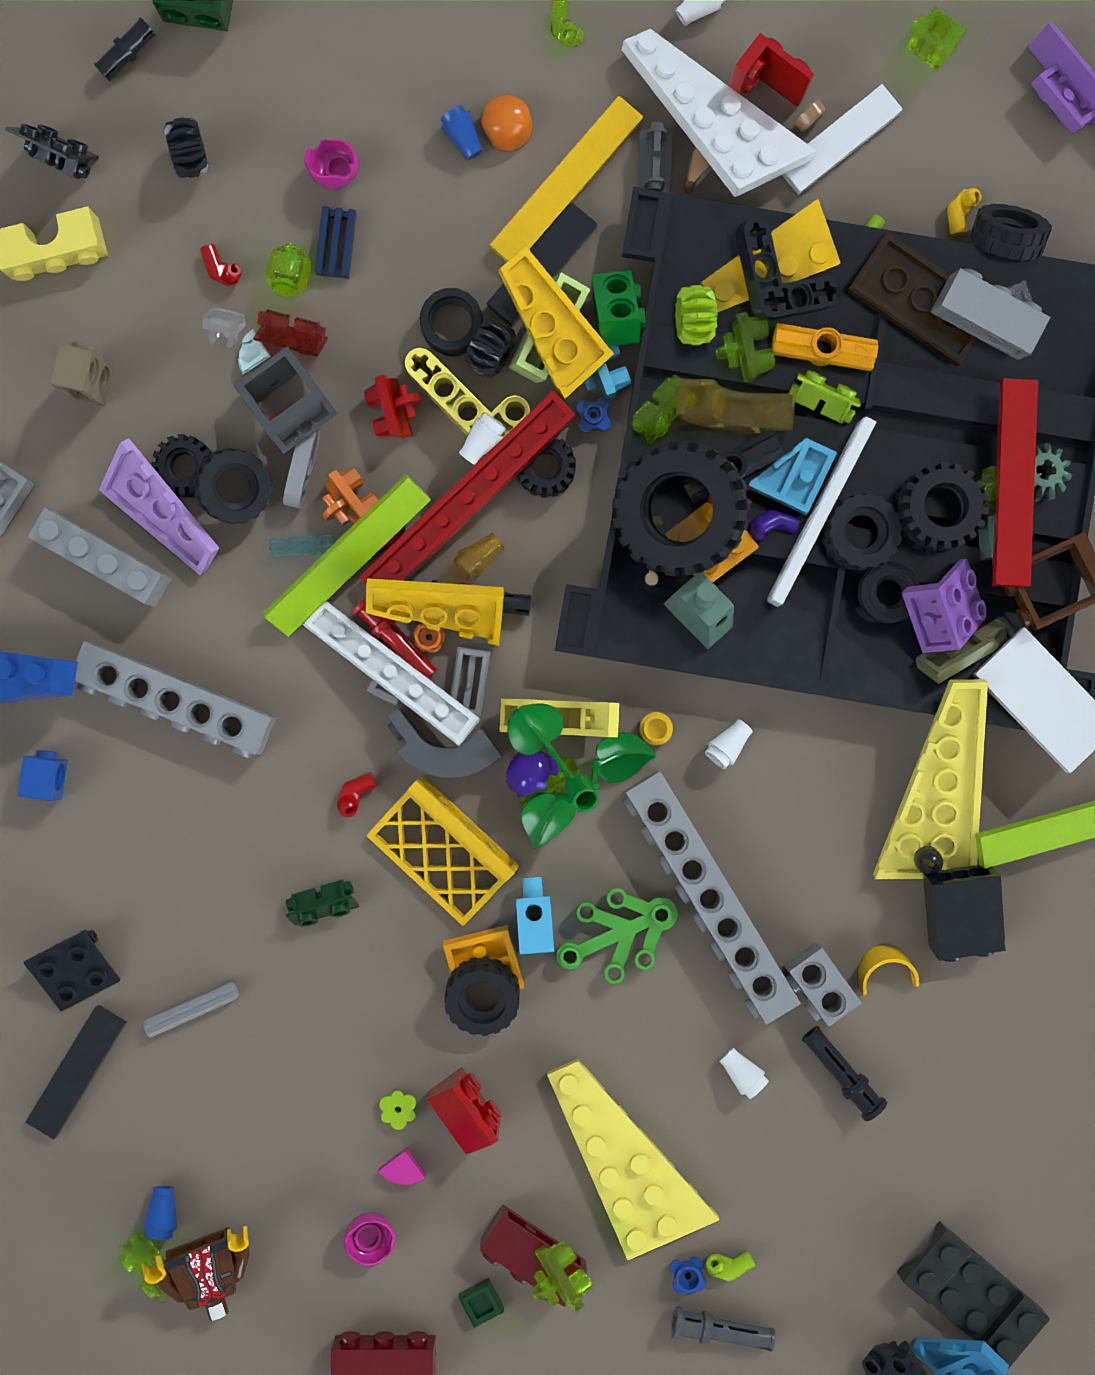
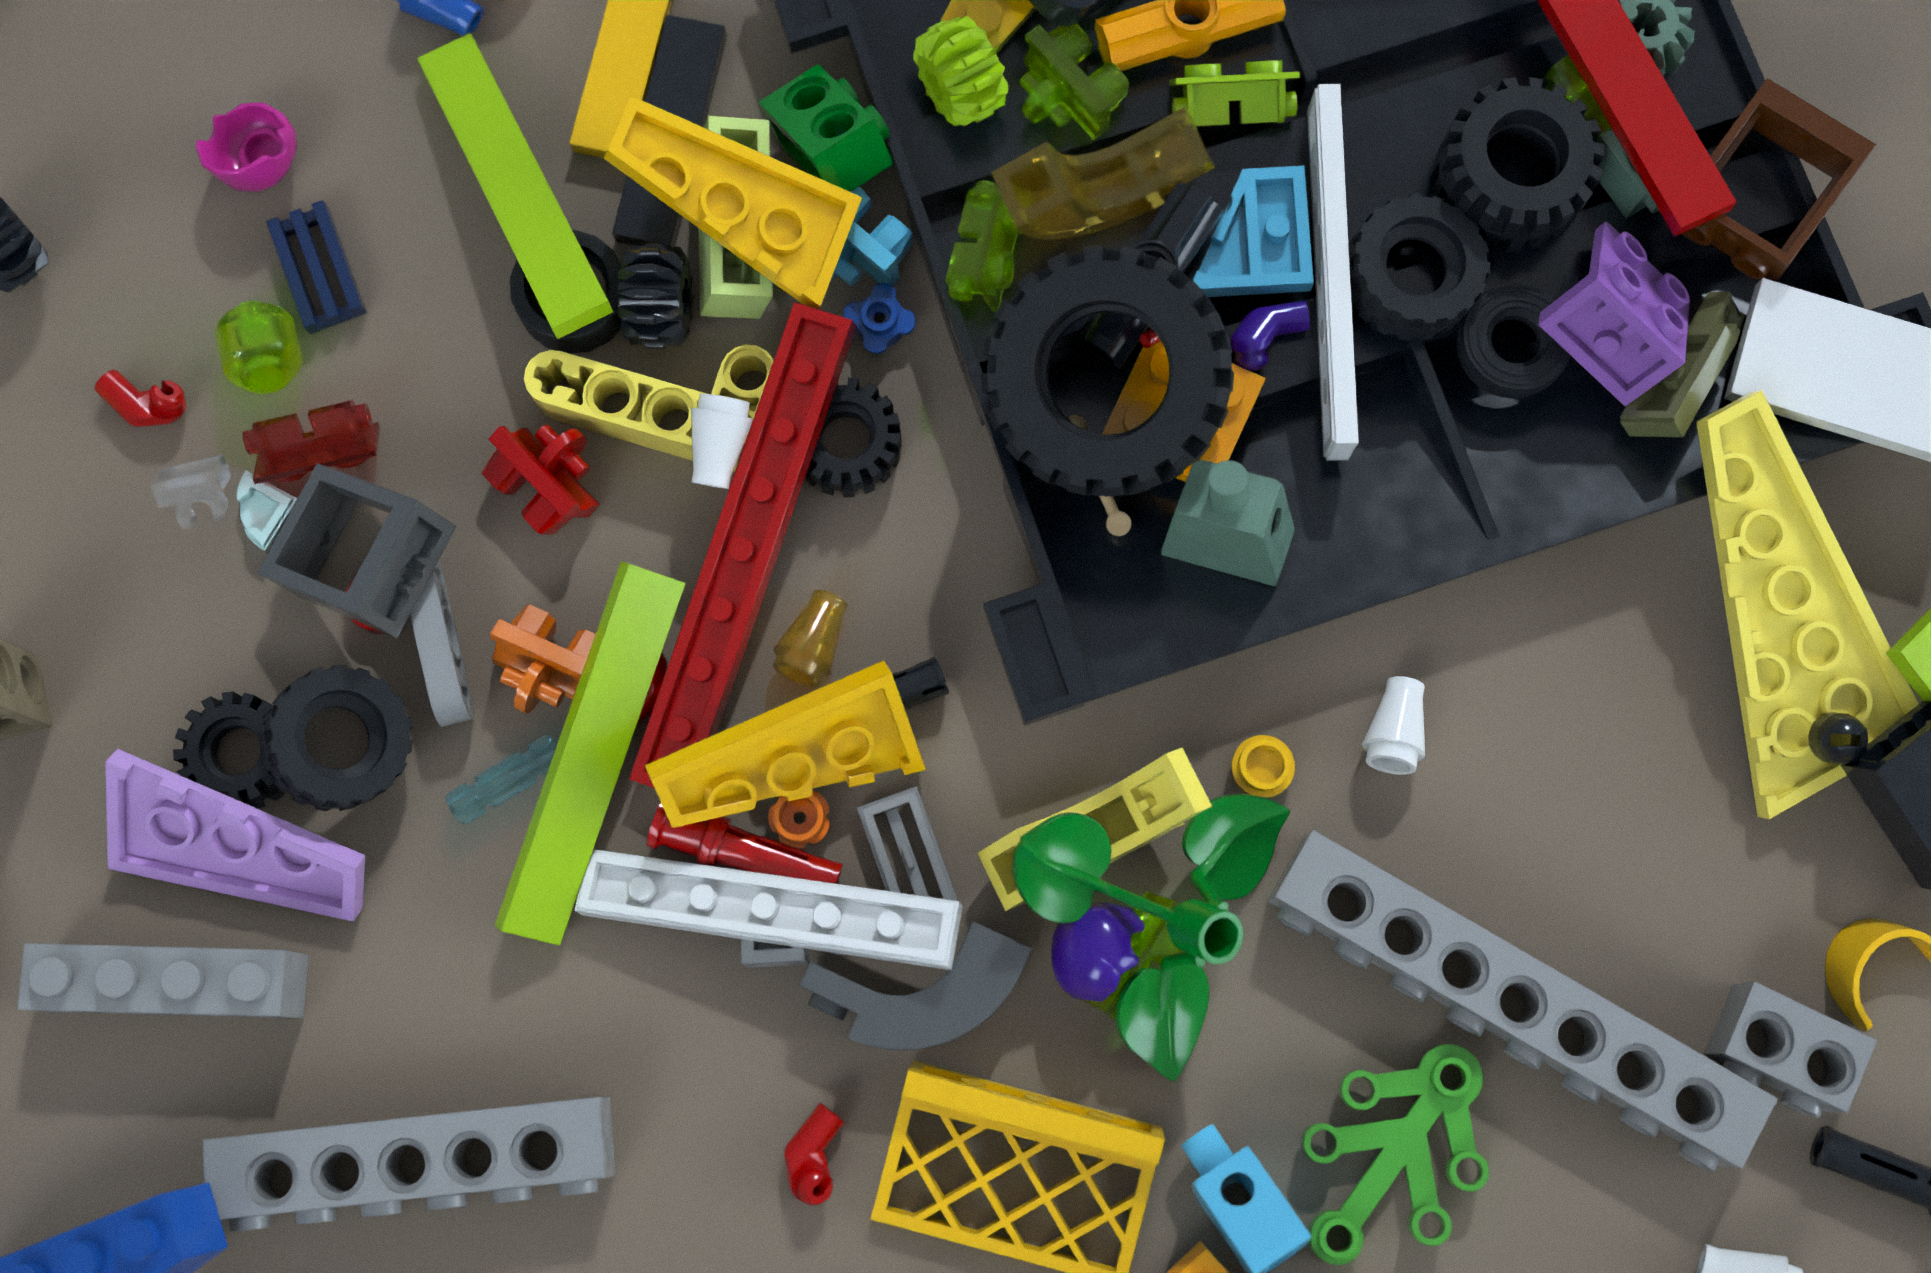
camera: 25 degrees left, 10 degrees down
(450, 253) = (515, 186): none -> lime tile

